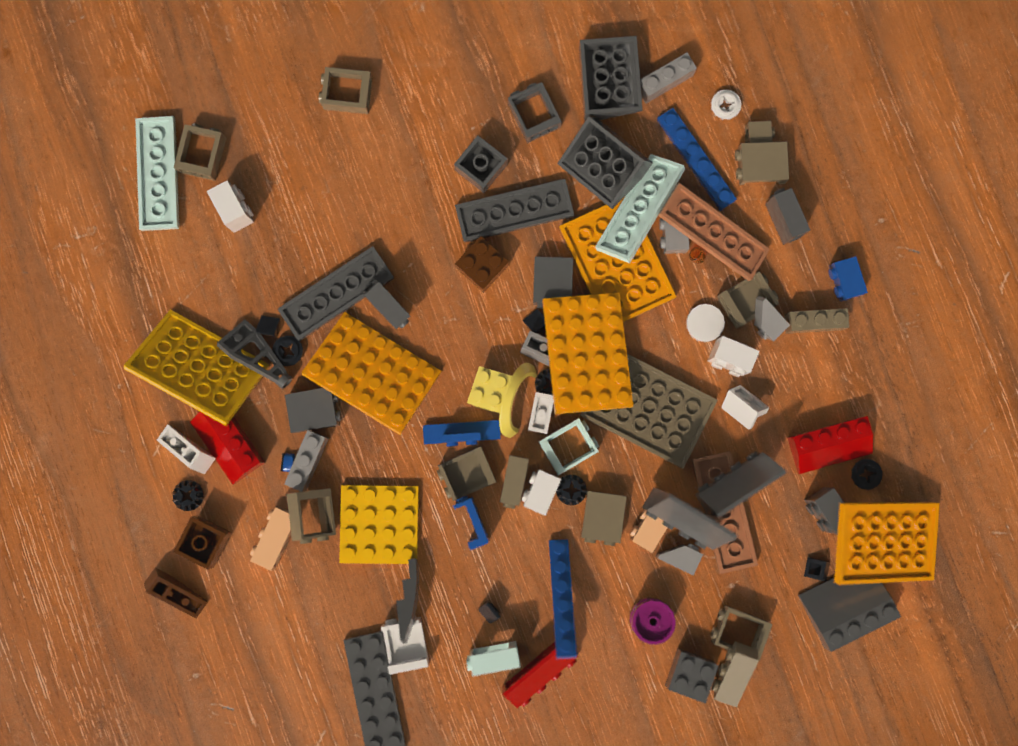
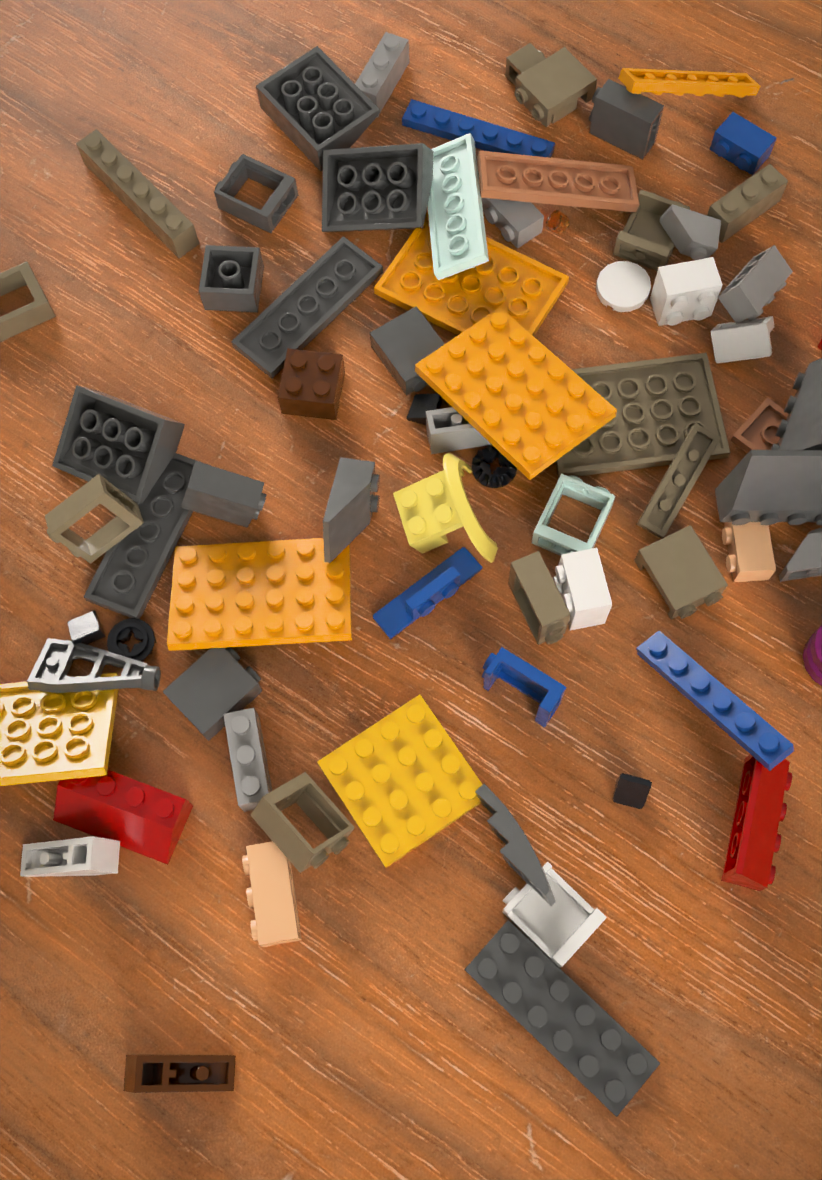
camera: 30 degrees left, 15 degrees down
(196, 495) = (120, 933): black gear -> none
(202, 542) = (172, 967): reddish brown brick -> none
(287, 462) = (224, 783): blue piece -> none
(323, 276) = (80, 503): none -> dark tan window
(350, 228) = (117, 442): none -> dark grey slope
(450, 358) = (349, 505): none -> dark grey slope
(464, 64) = (138, 194): none -> dark tan brick
(466, 474) = (471, 635): dark tan panel -> none
(493, 658) = (685, 841): light aqua window -> none
(541, 413) = (509, 500): white panel -> none
(577, 496) = (630, 572): black gear -> none
(641, 465) = (678, 481): none -> dark tan plate
(729, 97) = (467, 56): white gear -> none
(776, 380) = (755, 285): none -> light grey brick
(842, 220) = (688, 82): none -> light orange plate

